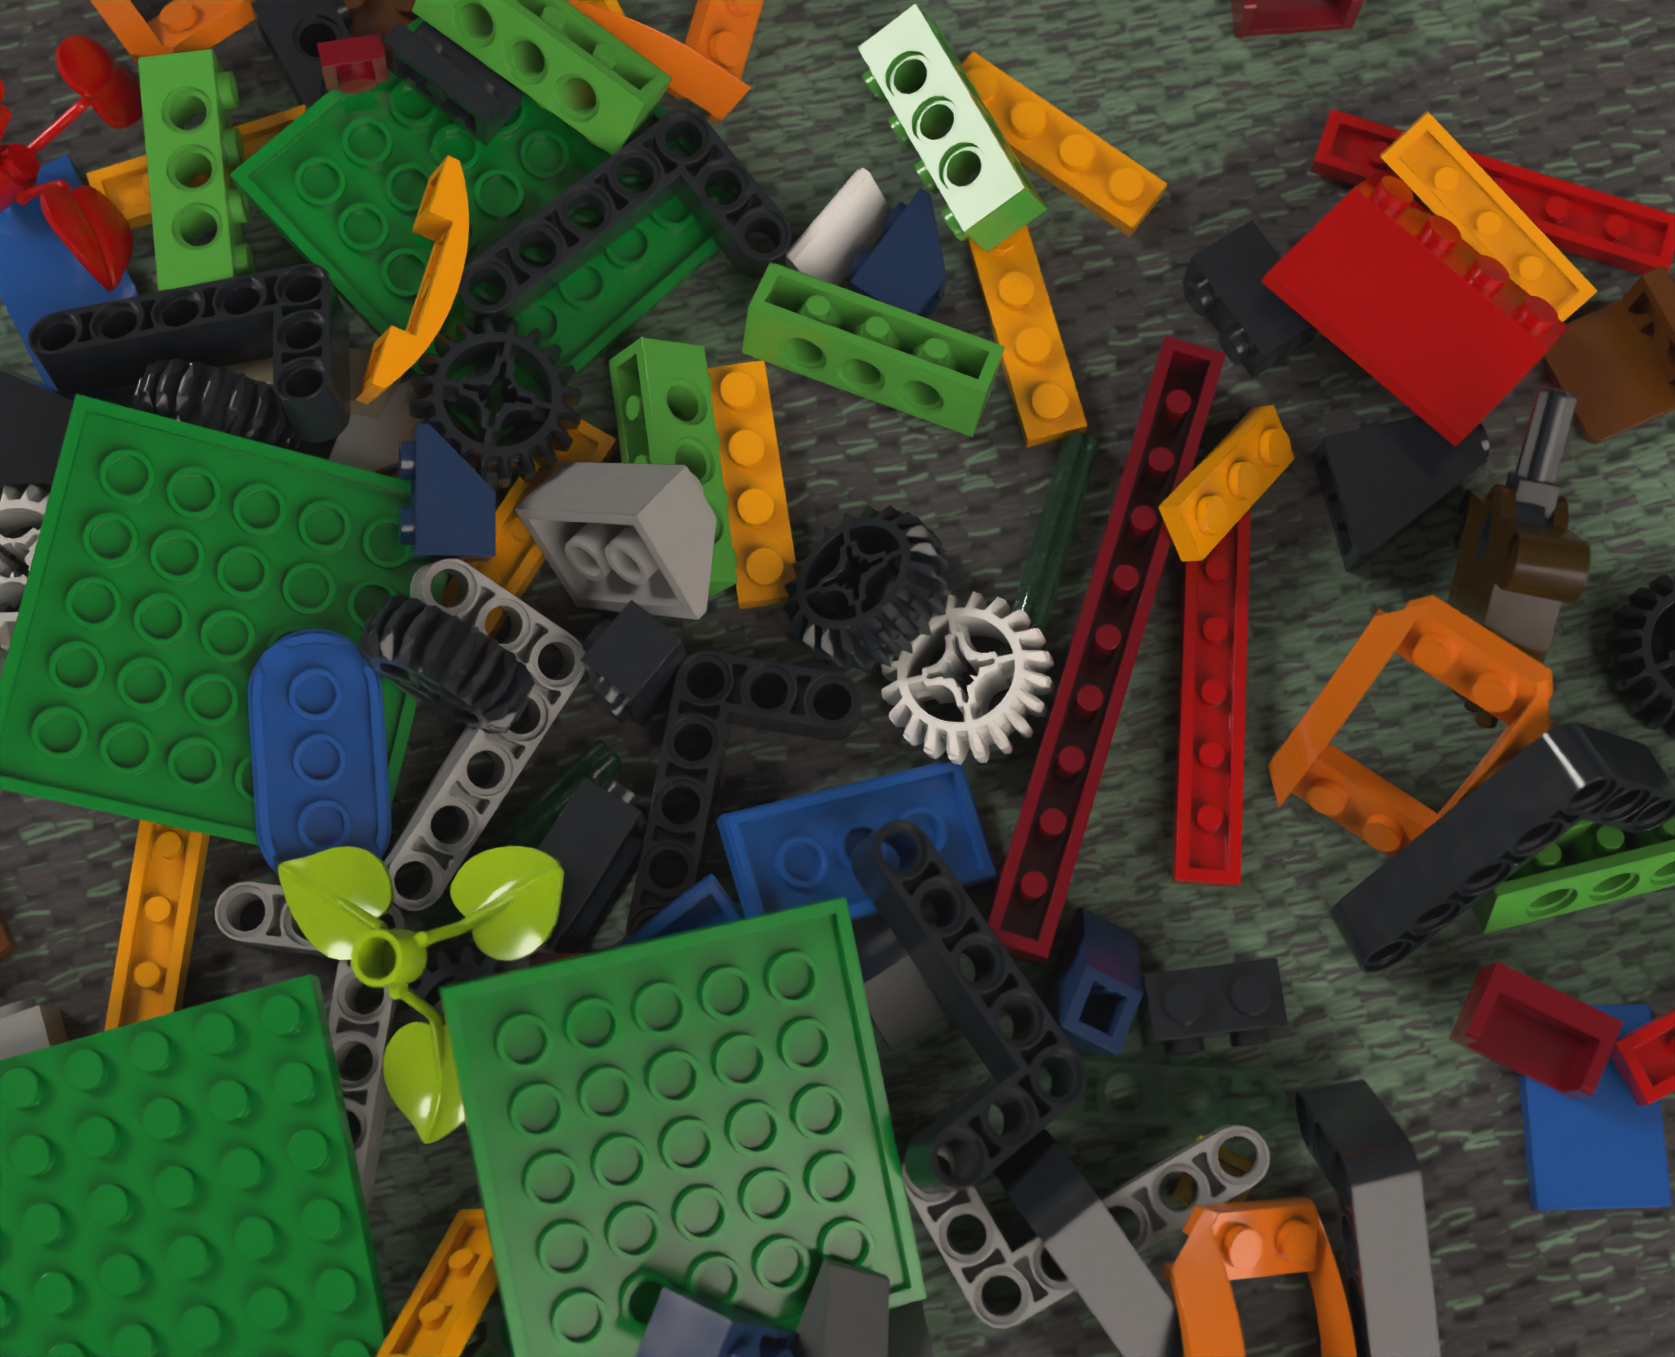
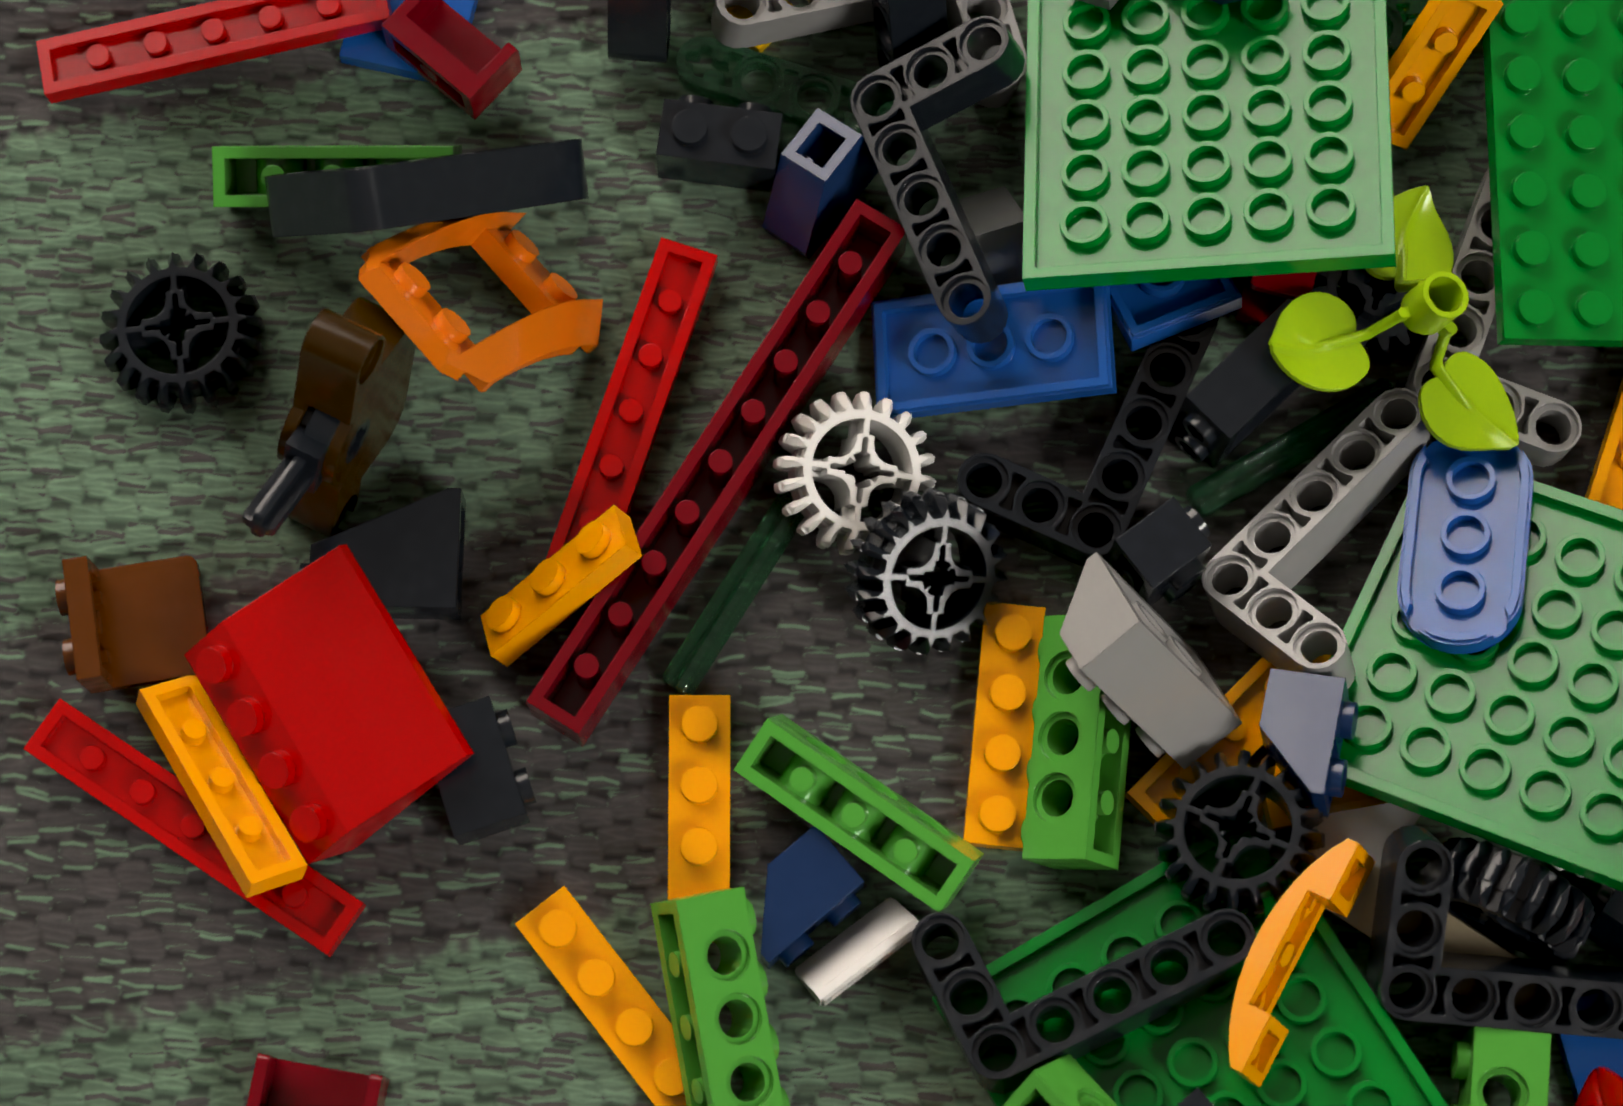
camera: 170 degrees left, 0 degrees up
(446, 664) = (1336, 571): black gear -> none

